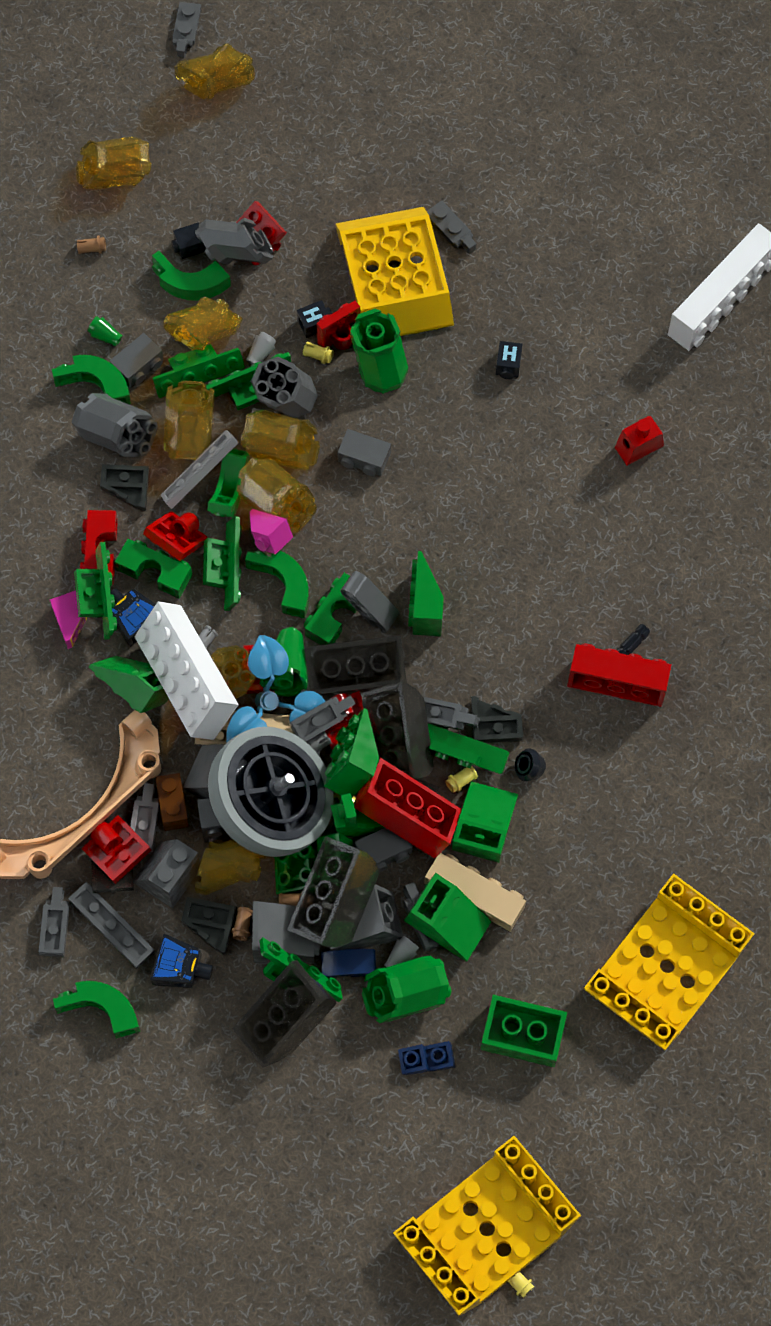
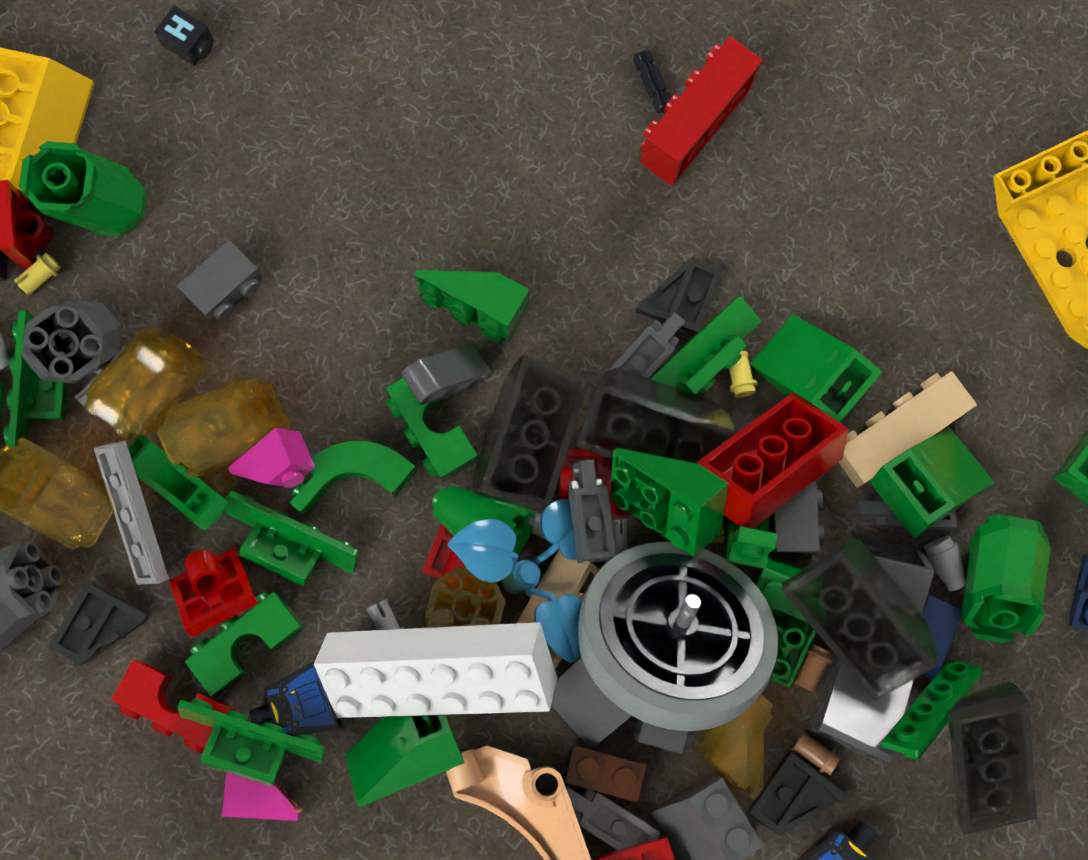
camera: 70 degrees left, 10 degrees up
(529, 765) = (765, 281): black cone -> none

